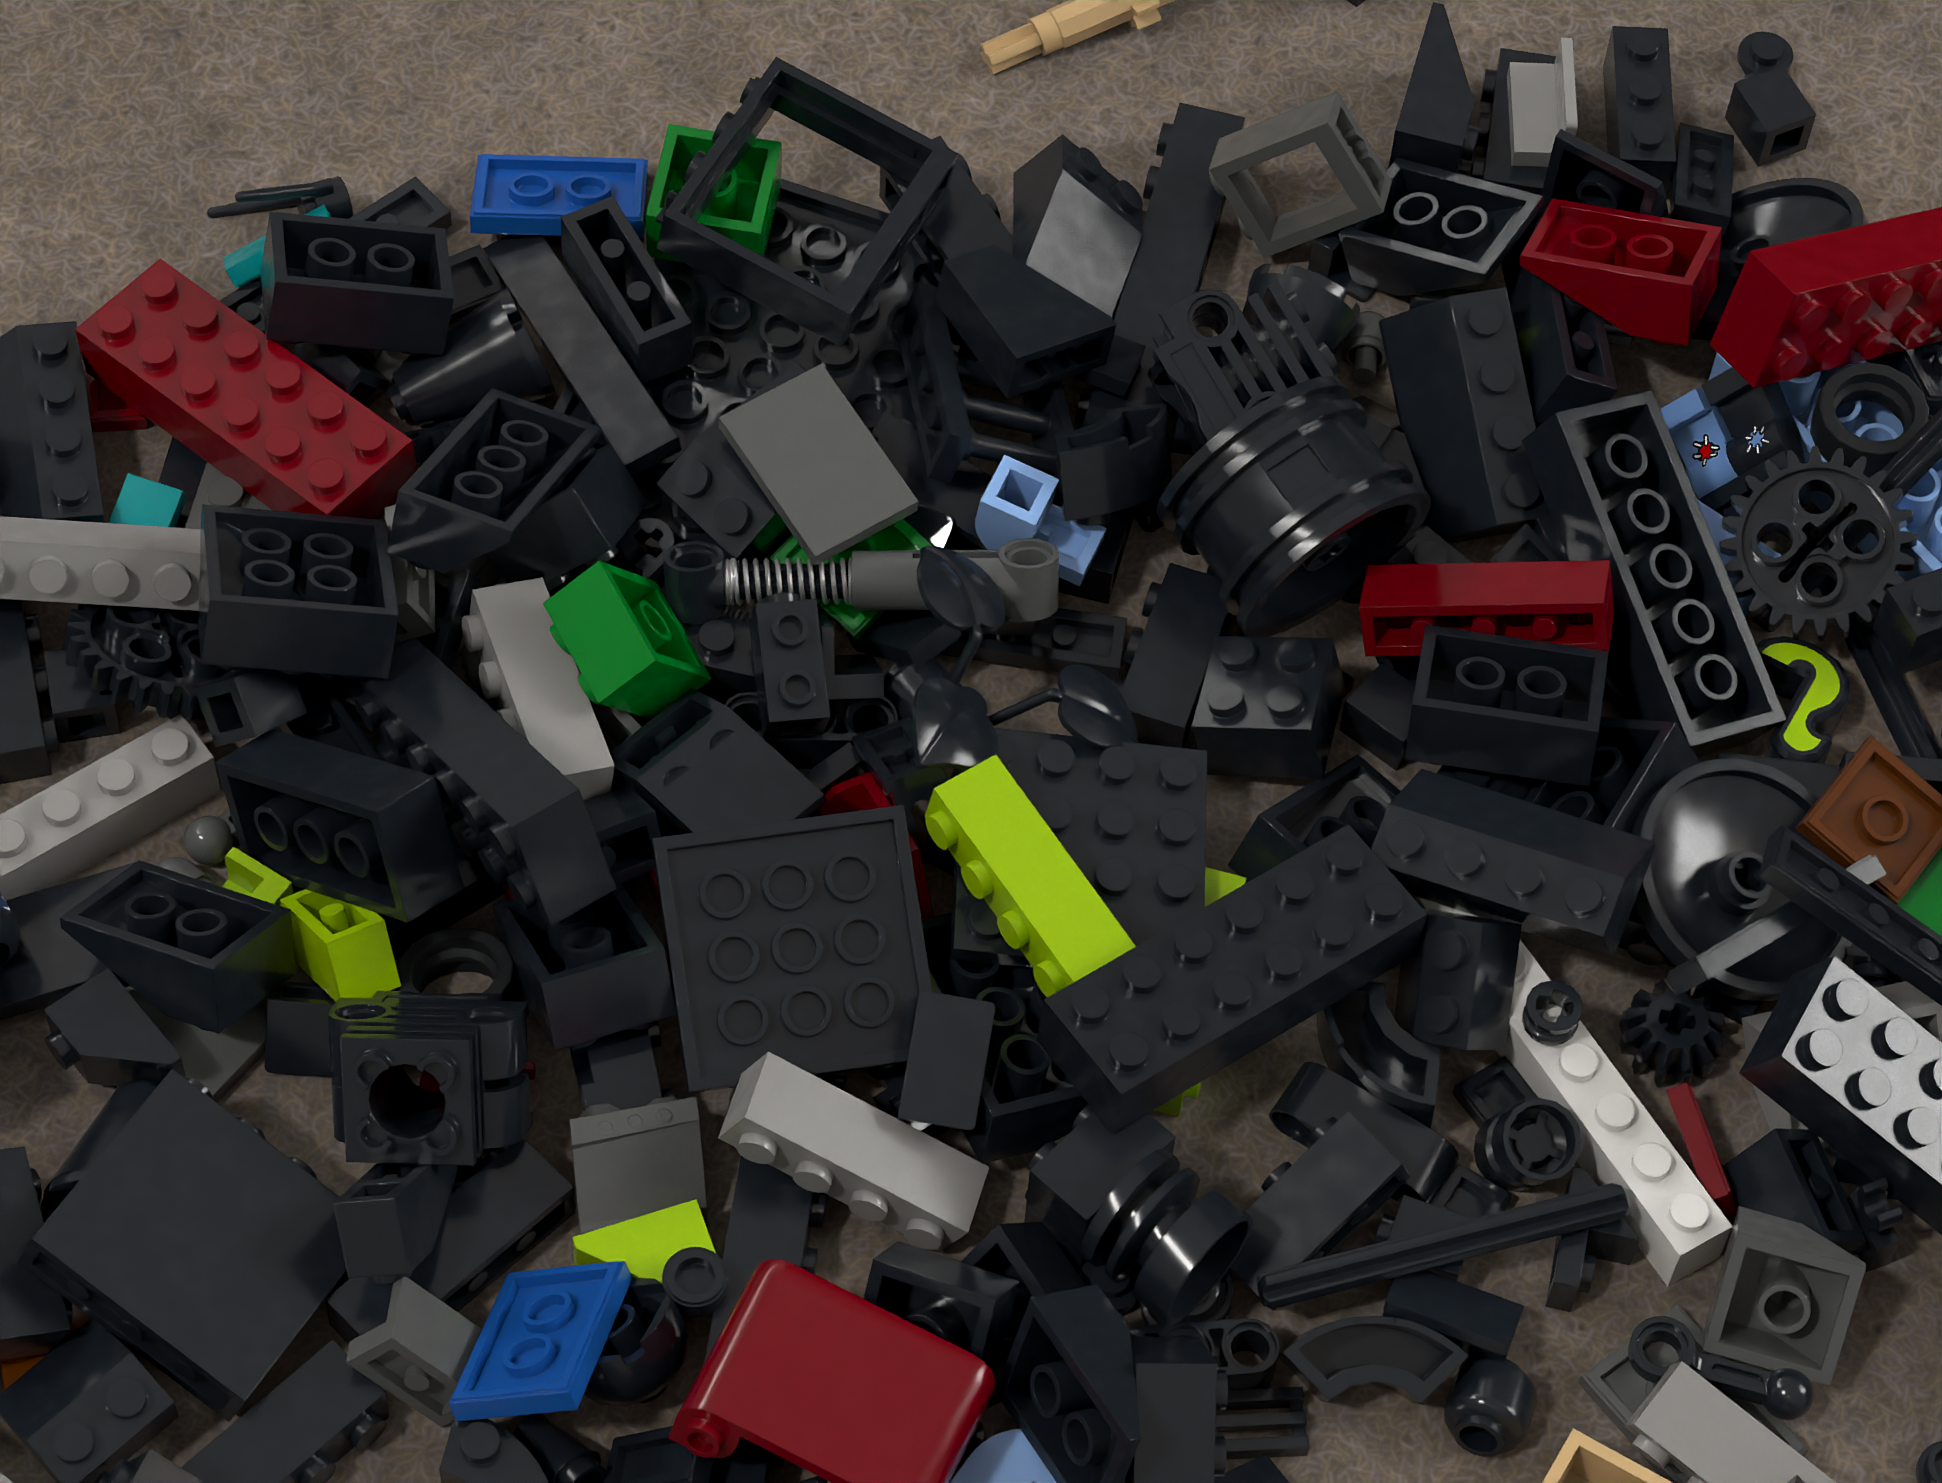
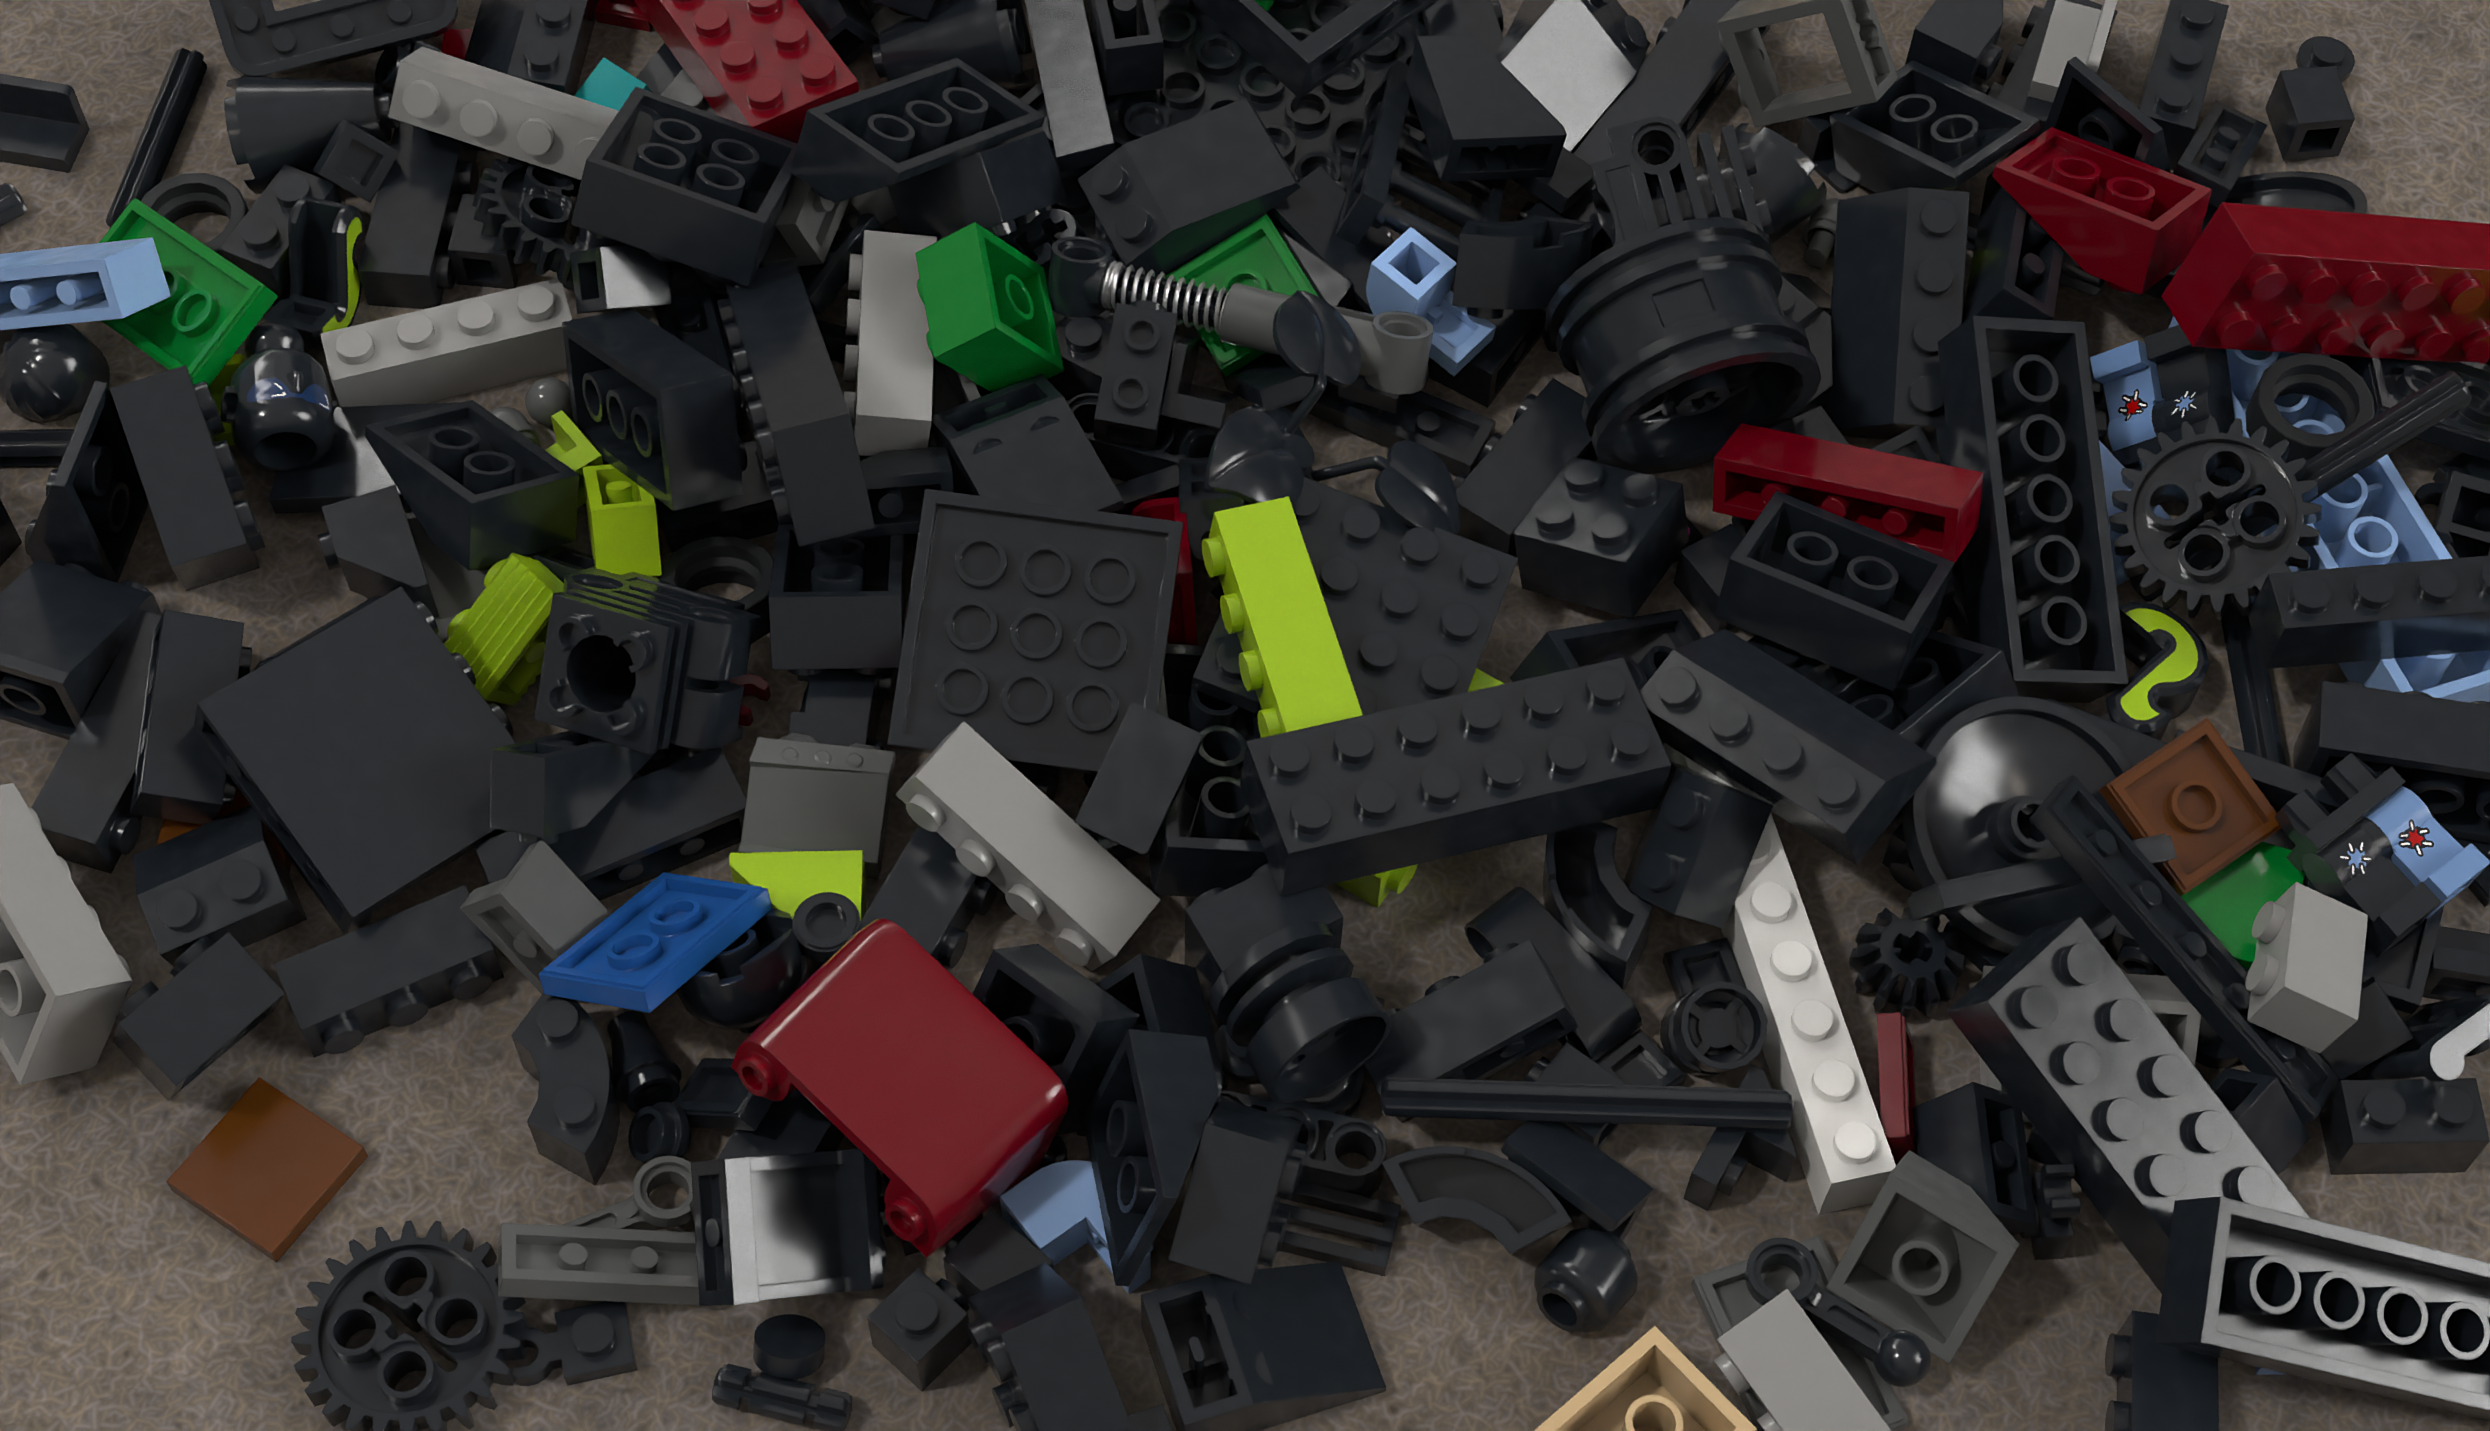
camera: 20 degrees right, 0 degrees up
(274, 1072) = (506, 628): none -> lime brick
(818, 464) = (1228, 193): dark grey tile -> none
(1567, 1022) = (1769, 886): black bush -> none

